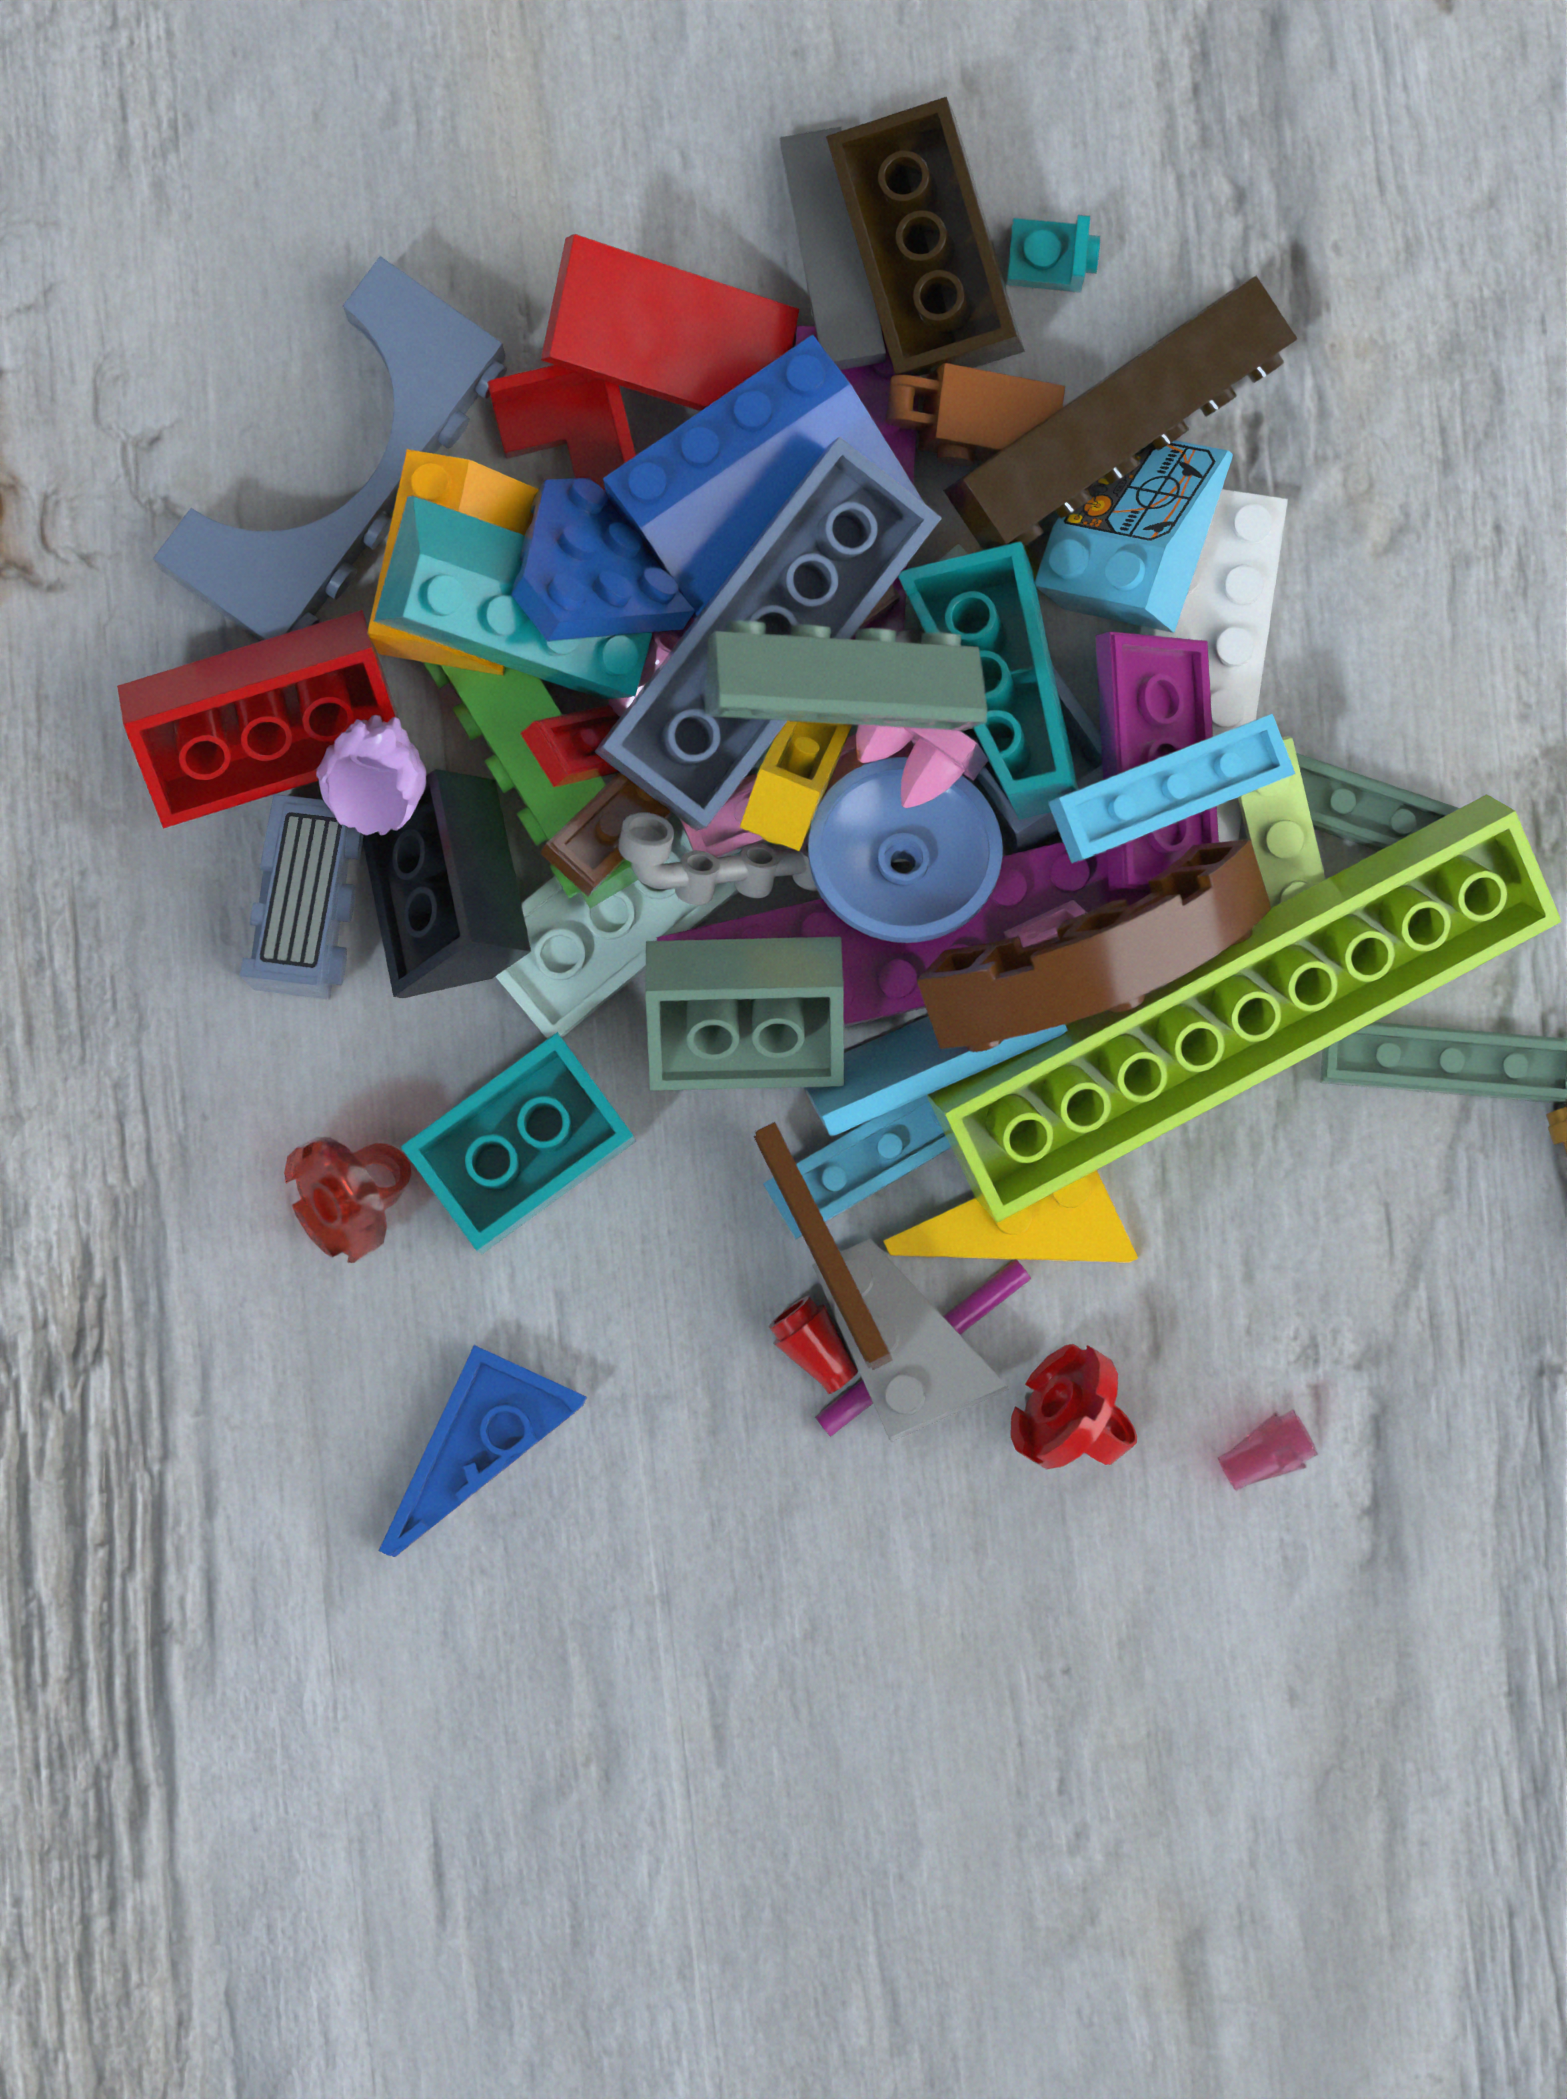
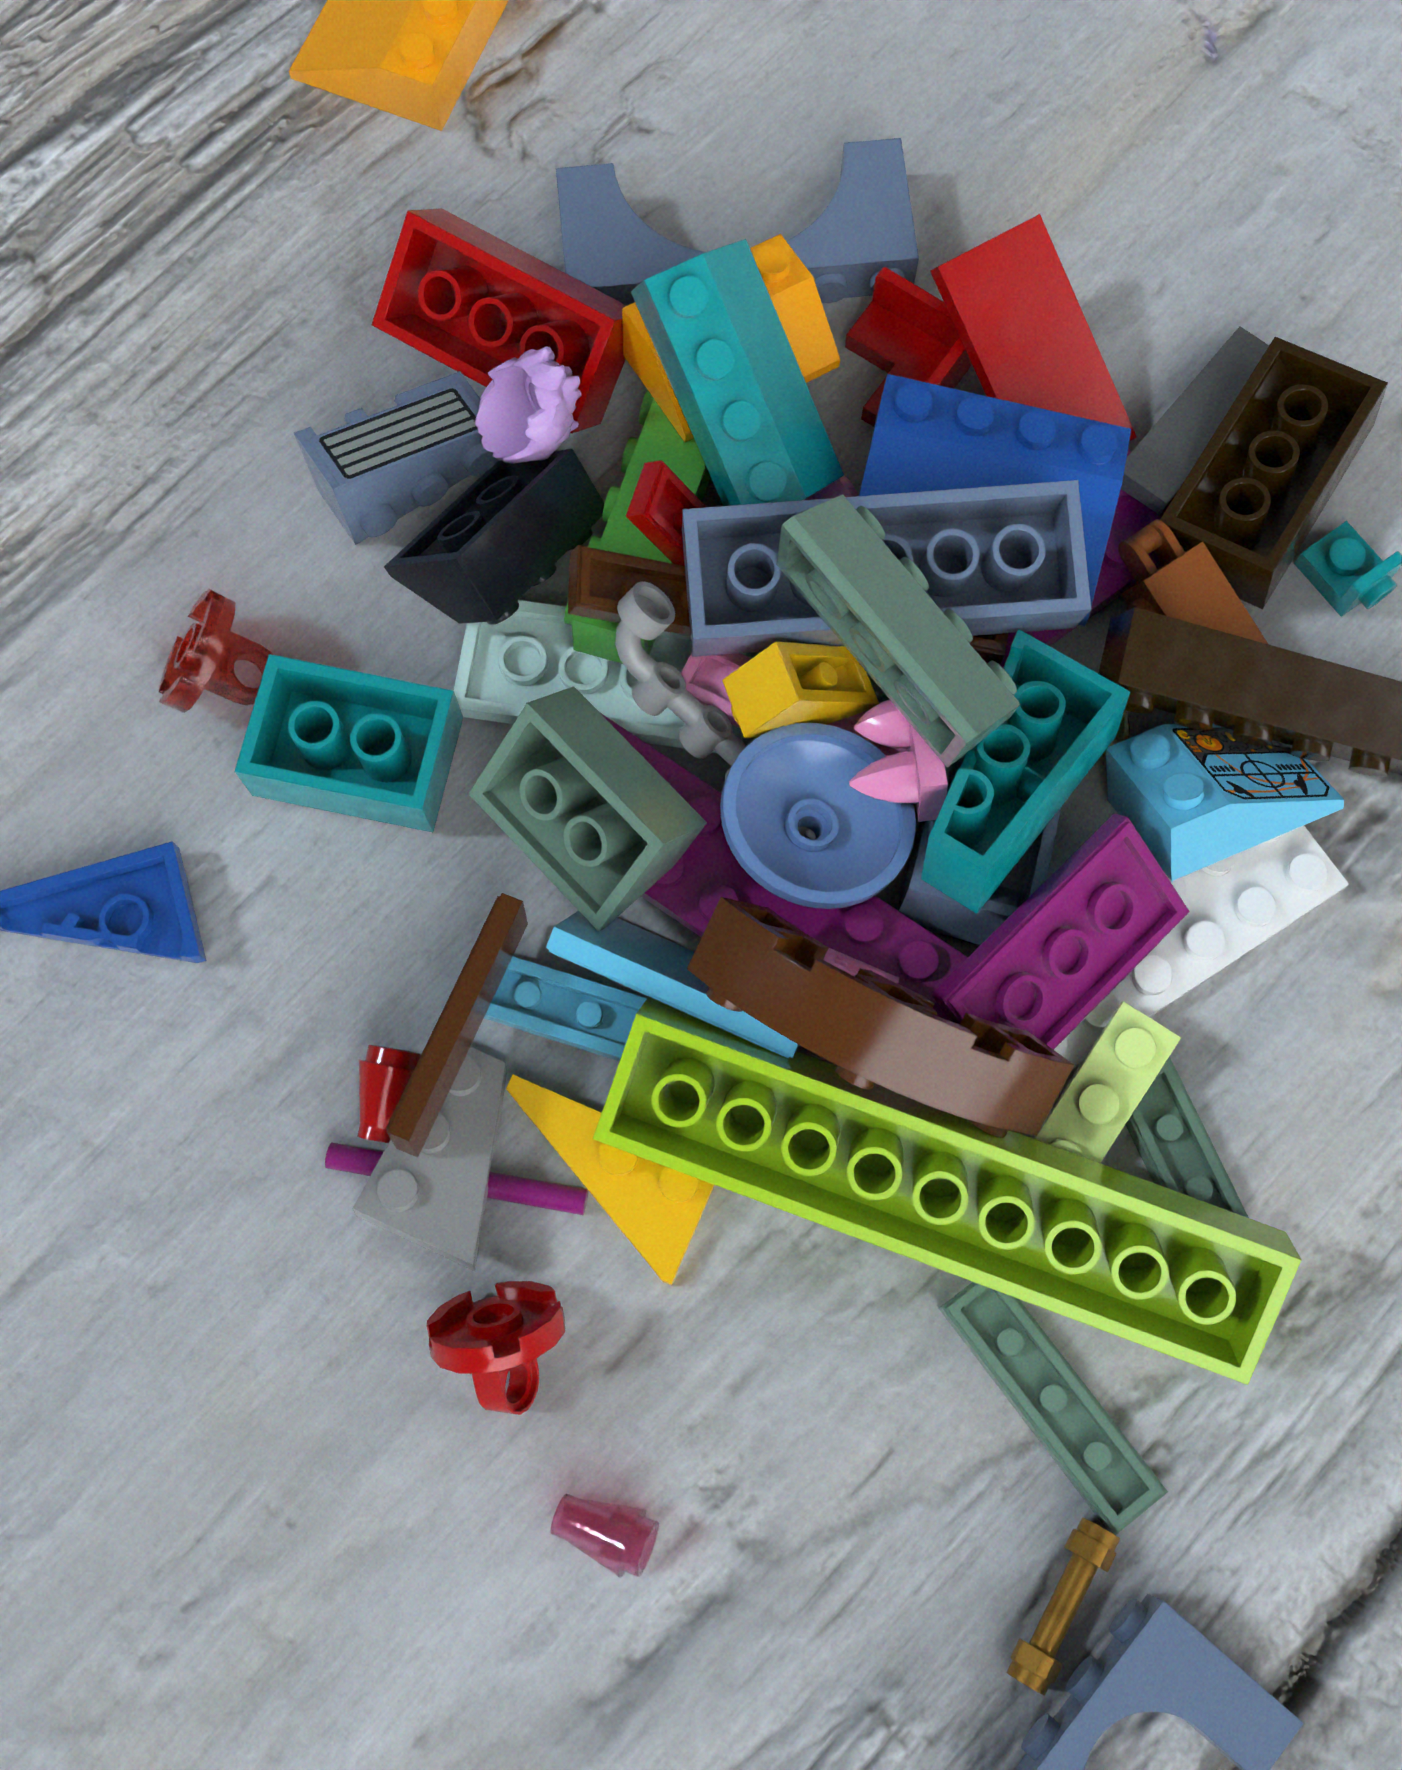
camera: 50 degrees right, 10 degrees down
(590, 570) = (809, 411): blue plate -> none
(1171, 788) = (1054, 966): medium azure plate -> none

